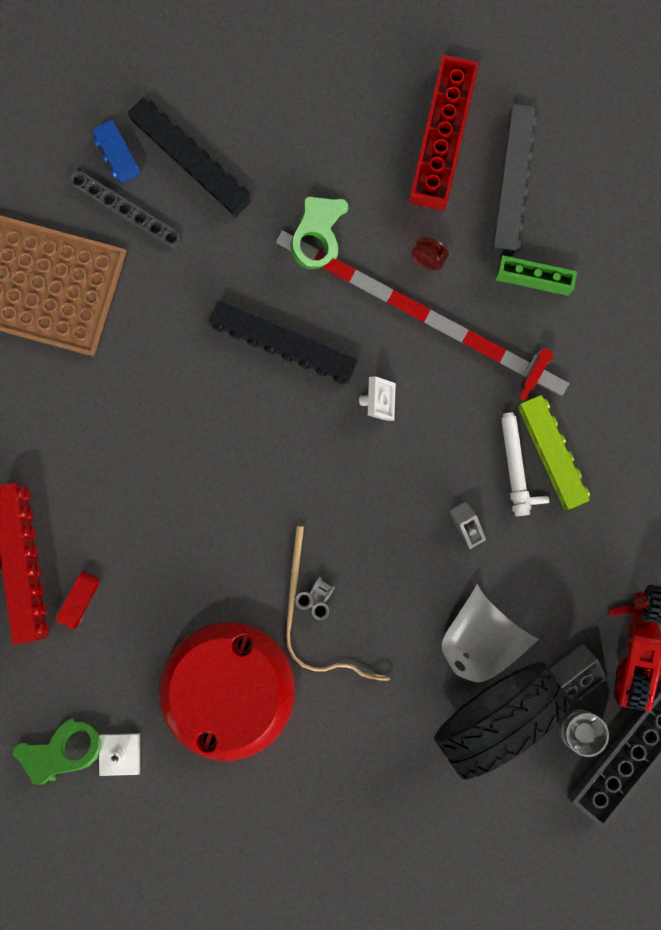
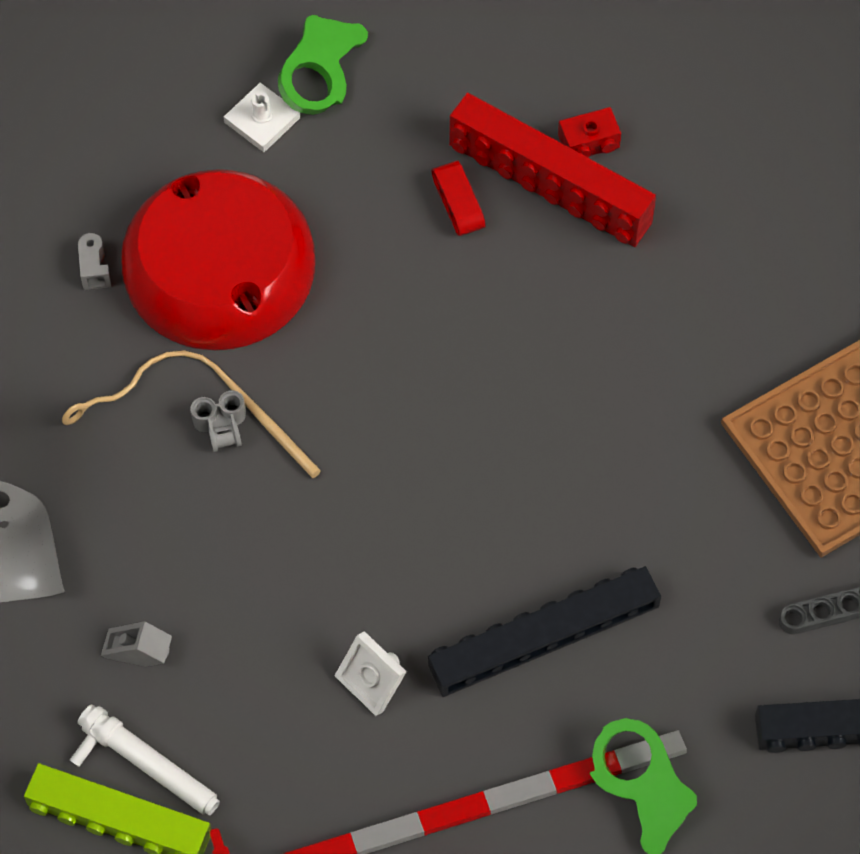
camera: 130 degrees right, 20 degrees down
(285, 761) = (91, 255): none -> light grey leg

